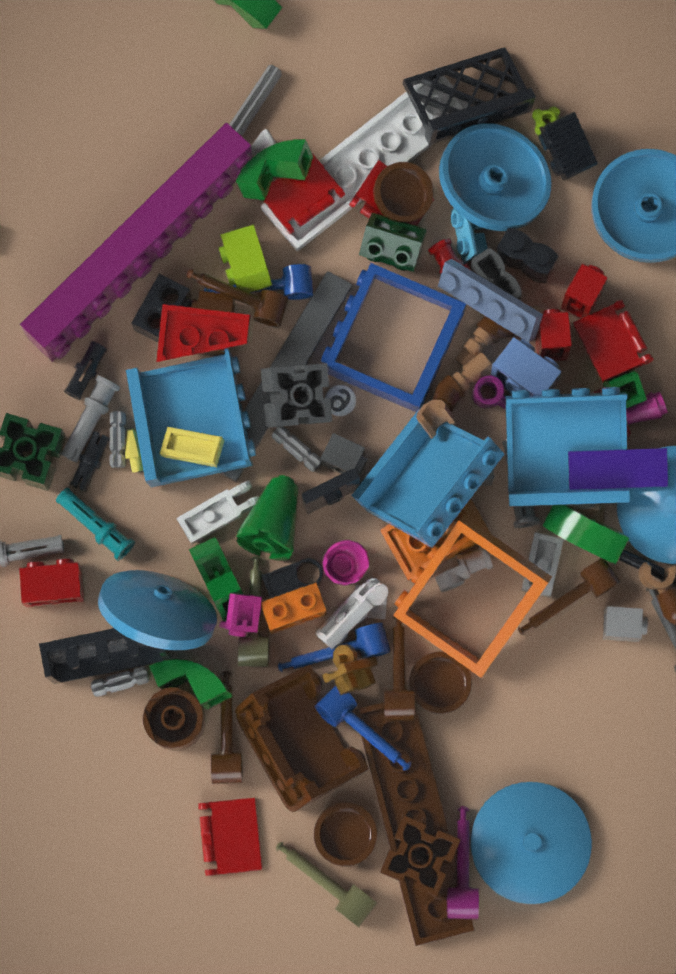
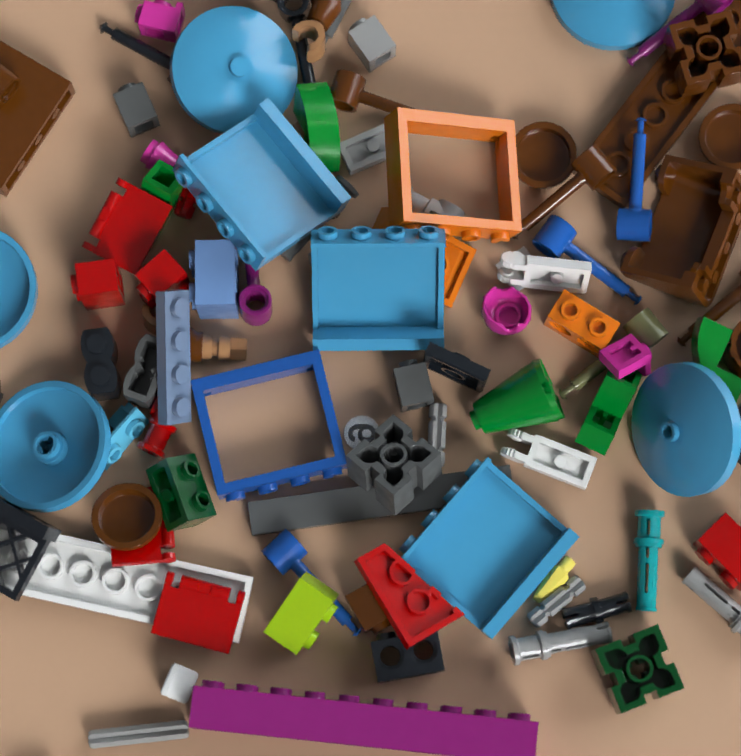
camera: 135 degrees left, 0 degrees up
(95, 353) = (518, 682): black pin -> none
(192, 447) = (513, 523): light yellow tile -> none
(268, 307) = (329, 561): reddish brown piece -> none
(282, 160) = (180, 651): green brick -> none
(285, 578) = (563, 352): black piece -> none
(351, 673) = (598, 229): pearl gold hips -> none
(449, 393) = (286, 335): medium nougat piece -> none
(618, 469) = (245, 131): dark purple sticker -> none

